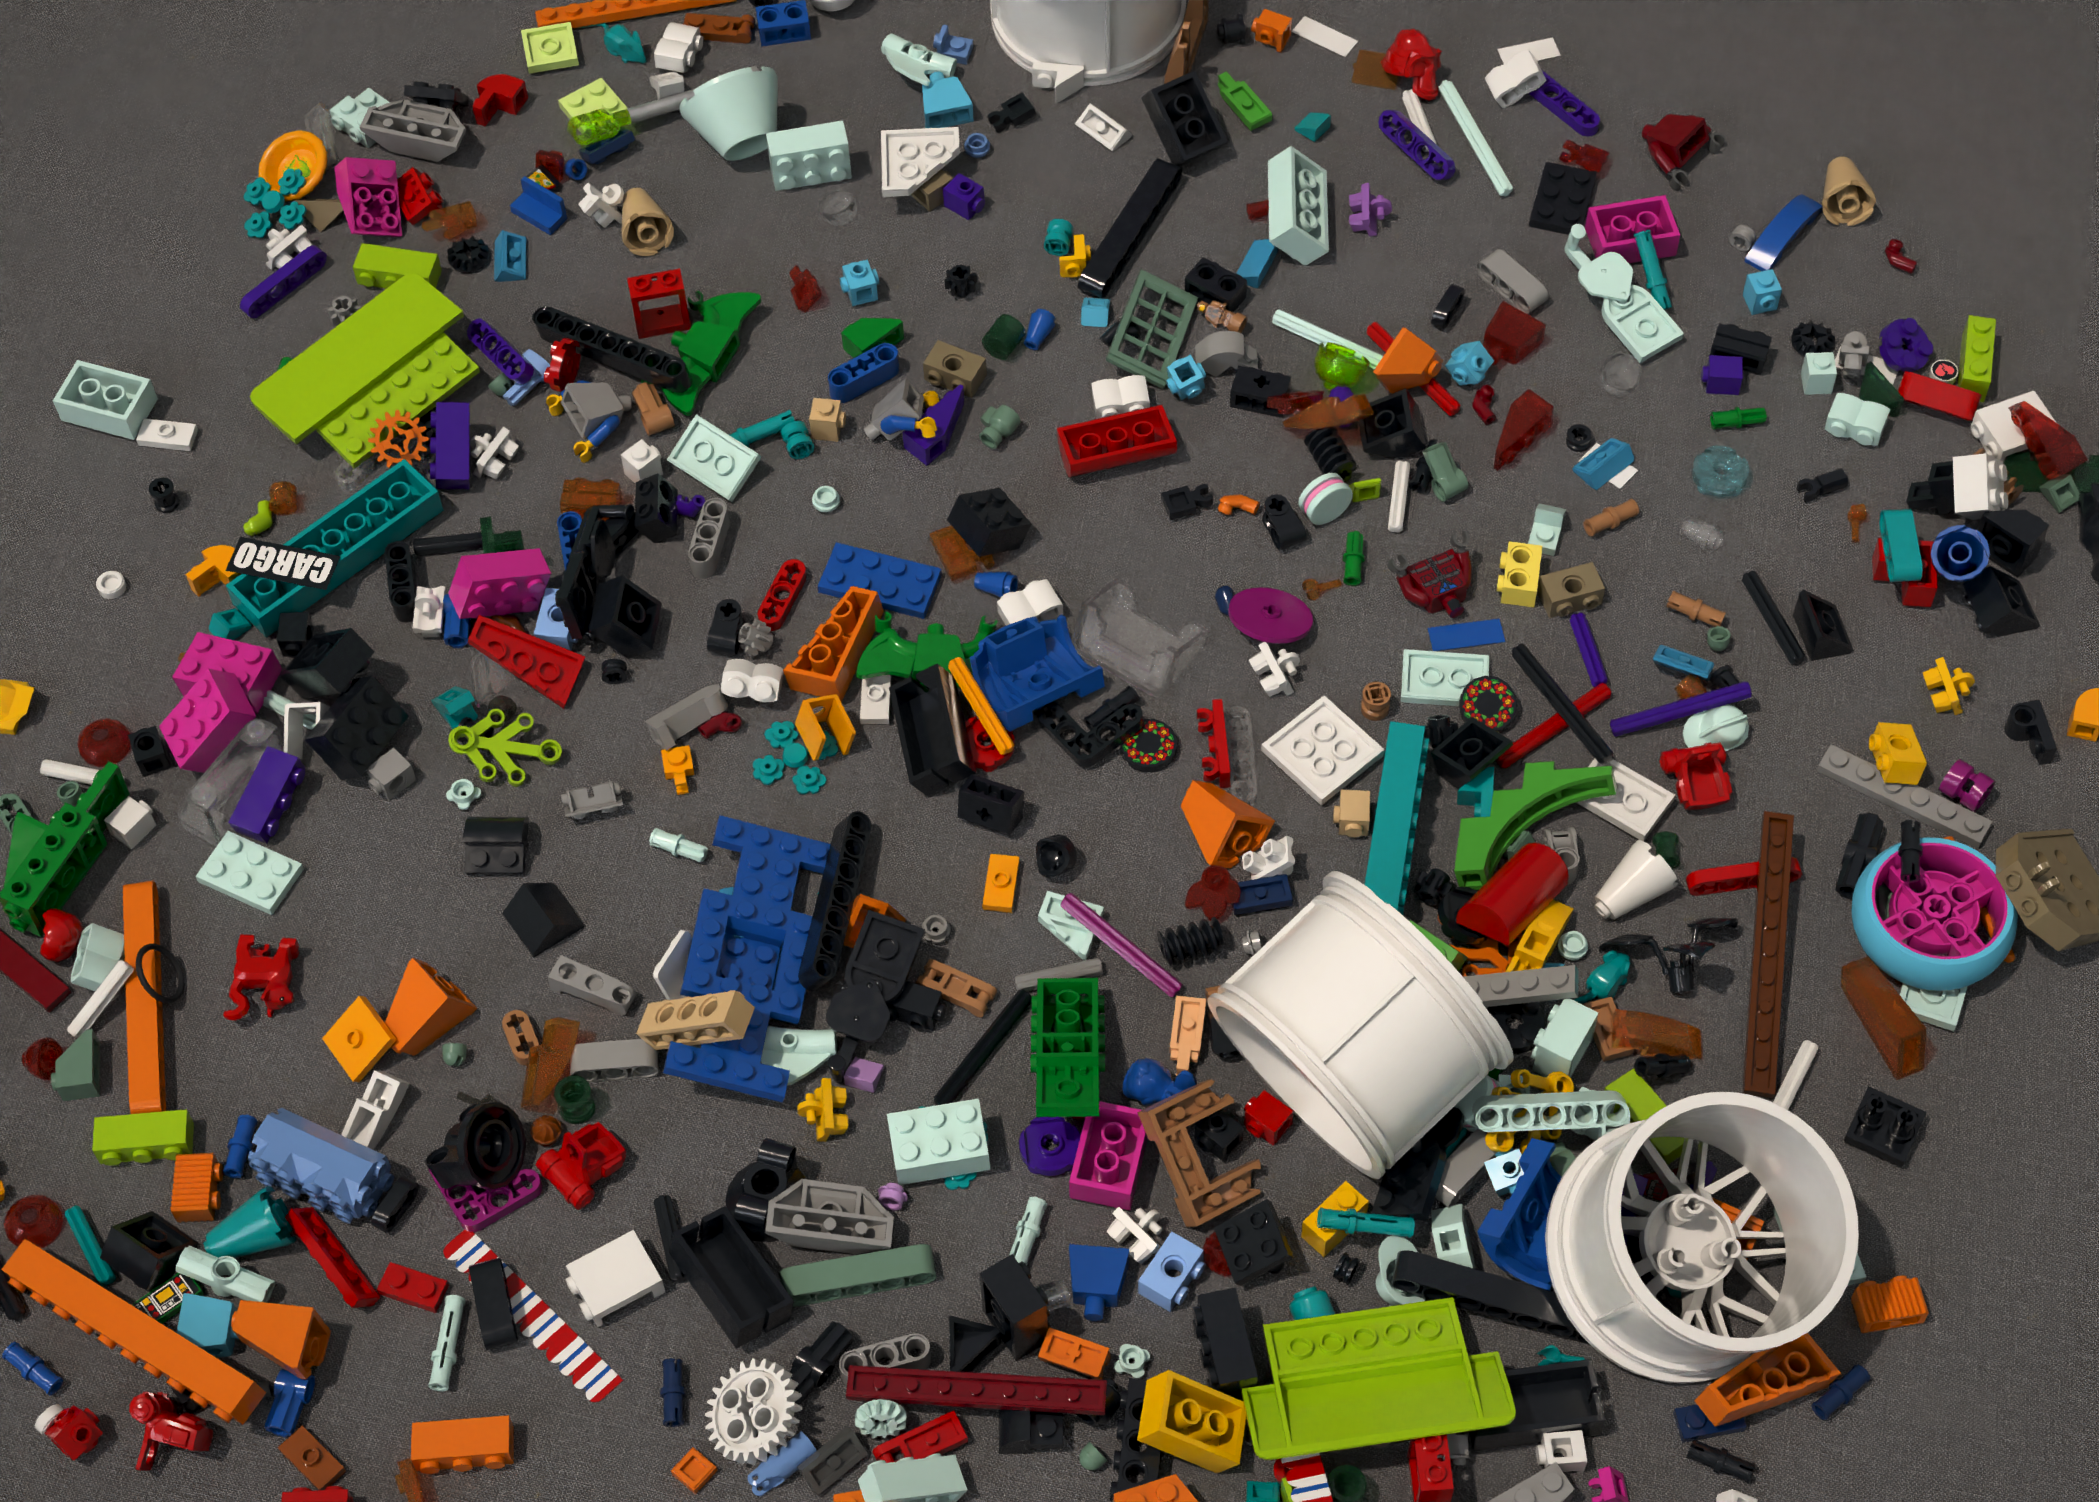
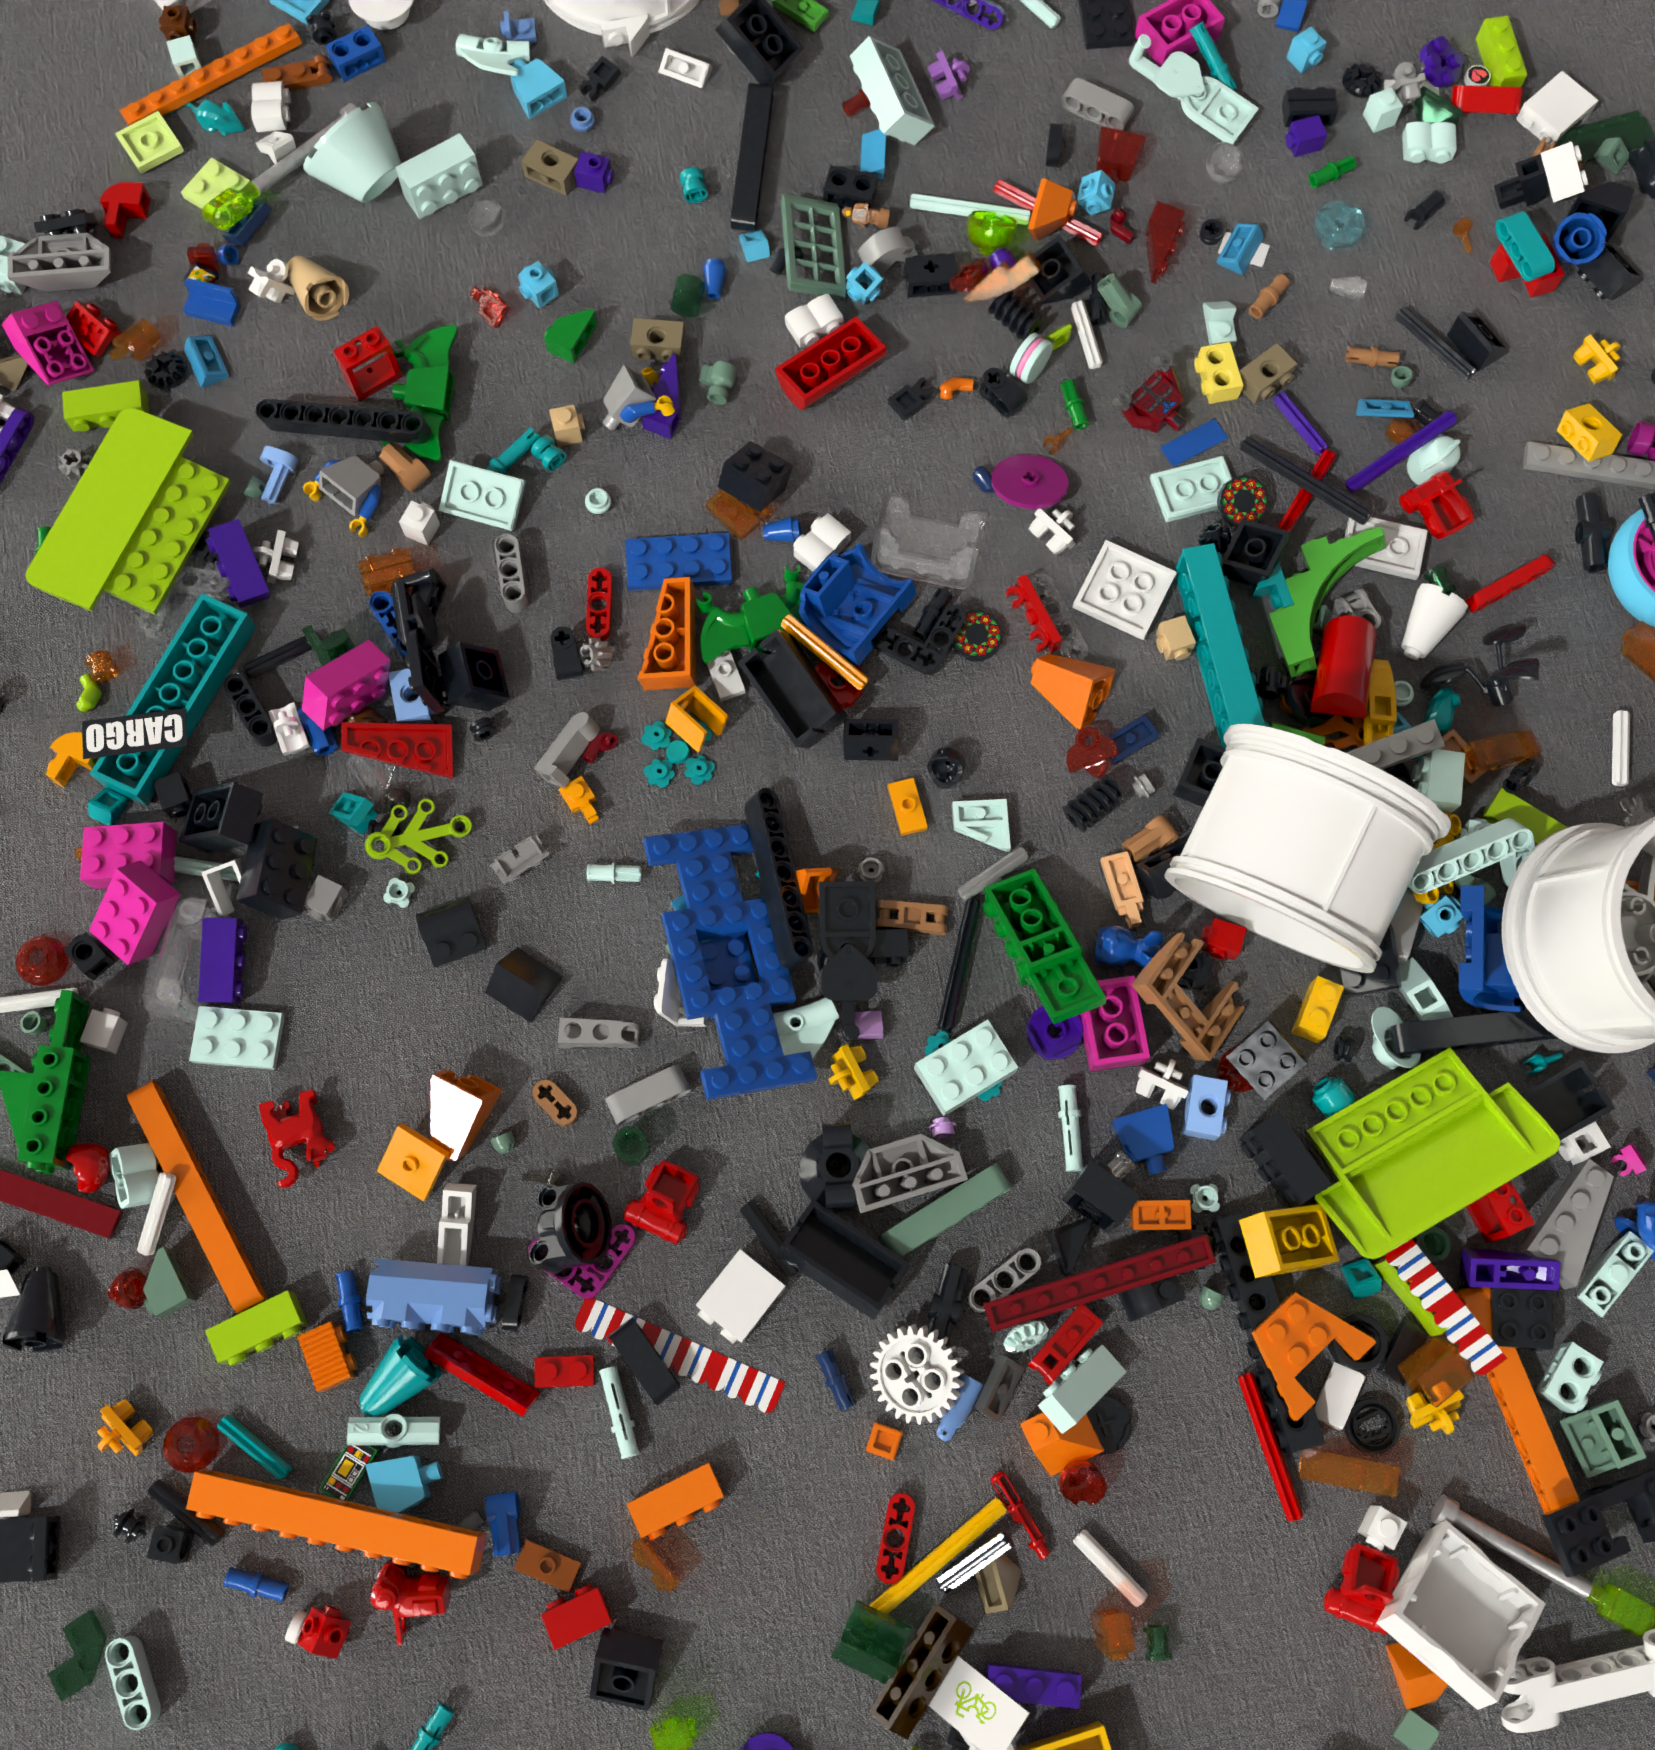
camera: 25 degrees left, 15 degrees up
(145, 1249) = (310, 1432): black slope -> none
(174, 962) = (185, 1180): black tyre -> none
(283, 1333) = (474, 1472): orange slope -> none
(410, 434) = (197, 566): orange gear -> none
(501, 349) = (240, 456): dark purple beam -> none
(546, 1130) = (616, 1181): dark orange plate -> none
(548, 1060) = (592, 1119): clear orange slope -> none
(563, 364) = (306, 450): red plate -> none
(656, 508) = (452, 561): black brick -> none
(690, 508) = (483, 550): dark purple arm -> none
(696, 1020) = (716, 1041): tan brick -> none
(746, 679) = (613, 696): white brick -> none
(863, 372) = (579, 369): blue beam -> none
(915, 156) = (537, 148): white plate -> none
(960, 281) = (626, 254): black gear -> none
(1074, 265) = (720, 206): yellow bracket -> none
(1121, 945) = (1036, 828): magenta axle -> none
(1272, 860) = (1128, 706): white hips -> none
(1365, 1222) = (1343, 1012): teal pin -> none
(1375, 701) = (1145, 534): medium nougat wheel -> none
(1768, 955) = (1563, 647): reddish brown plate -> none
(2051, 444) = (1596, 113): clear red slope -> none

